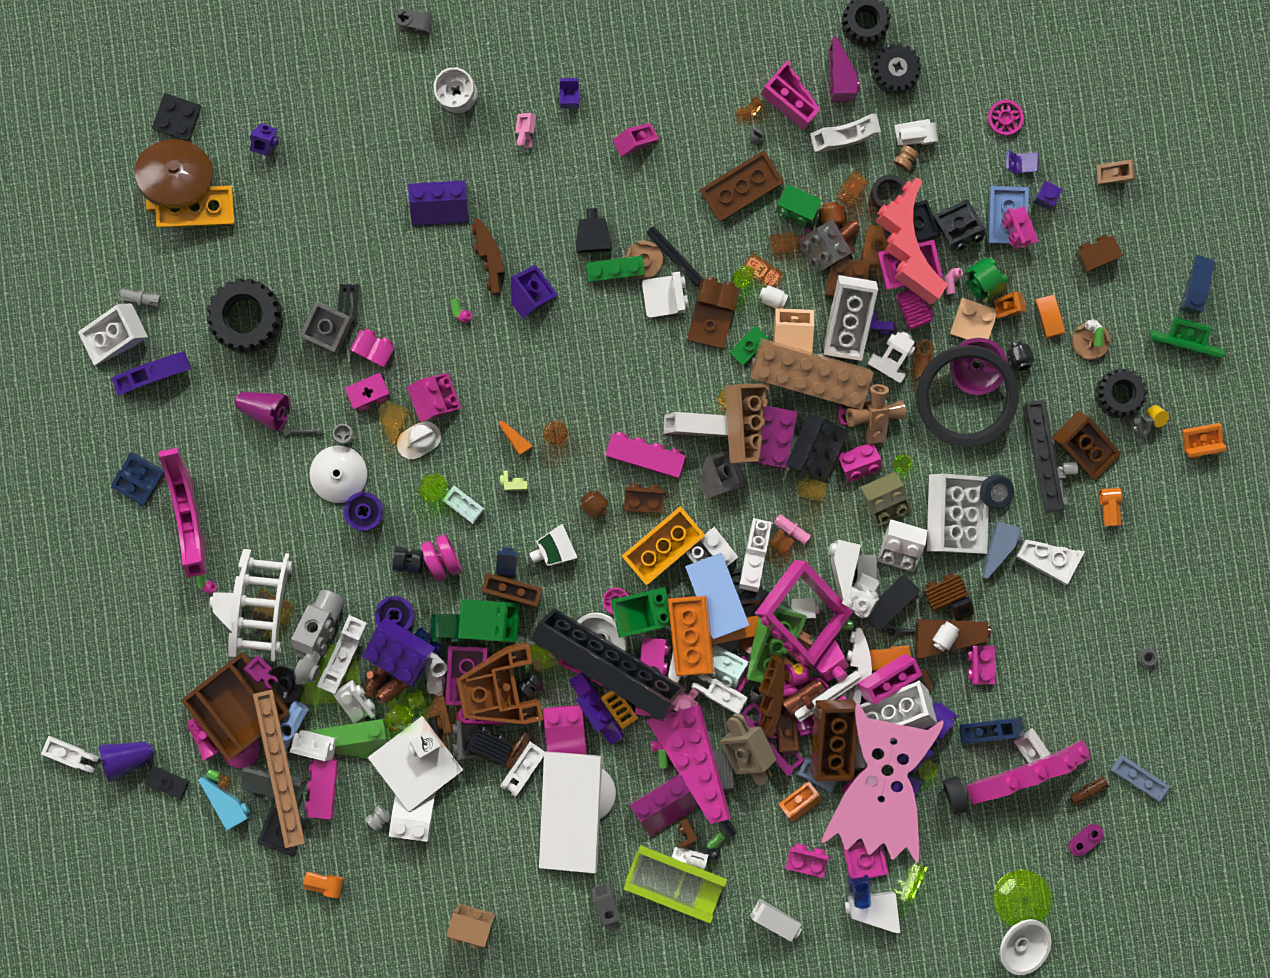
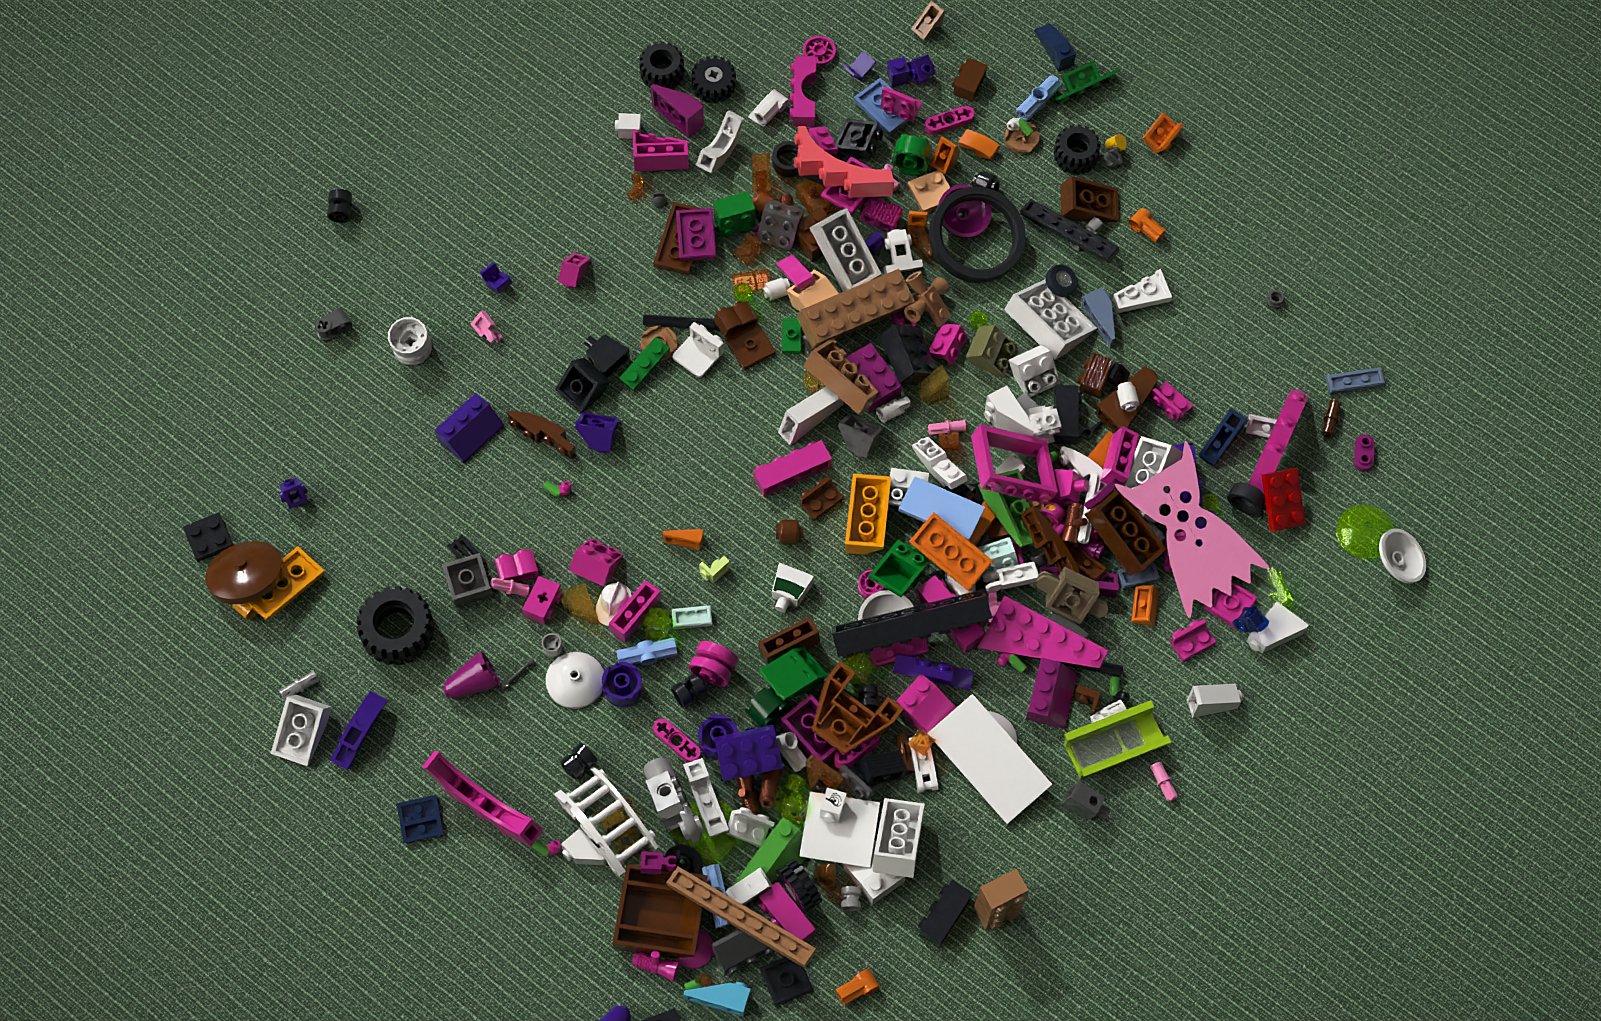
camera: 40 degrees left, 20 degrees down
(281, 540) = (578, 761): none -> black wheel
(346, 779) = (799, 885): none -> black wheel
(353, 360) = (510, 587): none -> bright pink axle
(371, 573) = (676, 733): none -> dark pink beam
(375, 787) = (826, 876): none -> clear orange brick
(405, 502) = (648, 652): none -> light blue piece
(424, 463) = (633, 611): none -> dark pink brick
(432, 890) = (944, 913): none -> black brick
(446, 811) = (898, 838): none -> white brick
(507, 562) = (764, 623): dark blue slope -> none
(533, 755) = (921, 742): none -> clear orange tile
(554, 243) = (582, 384): none -> black slope
(561, 436) = (711, 507): clear orange head -> none
(613, 711) = (950, 650): light orange slope -> none
(680, 943) = (1164, 781): none -> bright pink axle
(753, 195) = (696, 234): none -> magenta tile
(765, 477) = (892, 409): none -> white hinge
(791, 50) = (627, 124): none -> white brick
(797, 298) = (795, 272): none -> dark pink tile
(845, 696) = (1101, 494): none -> magenta tile
(906, 158) = (777, 127): medium nougat wheel -> none
(929, 203) = (823, 139): none -> dark pink plate
(933, 340) = (917, 218): none -> orange slope
(973, 128) = (805, 73): none -> dark pink arch
(981, 823) = (1283, 499): none -> red plate
(1059, 283) = (955, 114): none -> dark pink beam
(1067, 210) = (921, 69): none -> dark purple brick
(1148, 319) = (1032, 103): none -> light blue piece

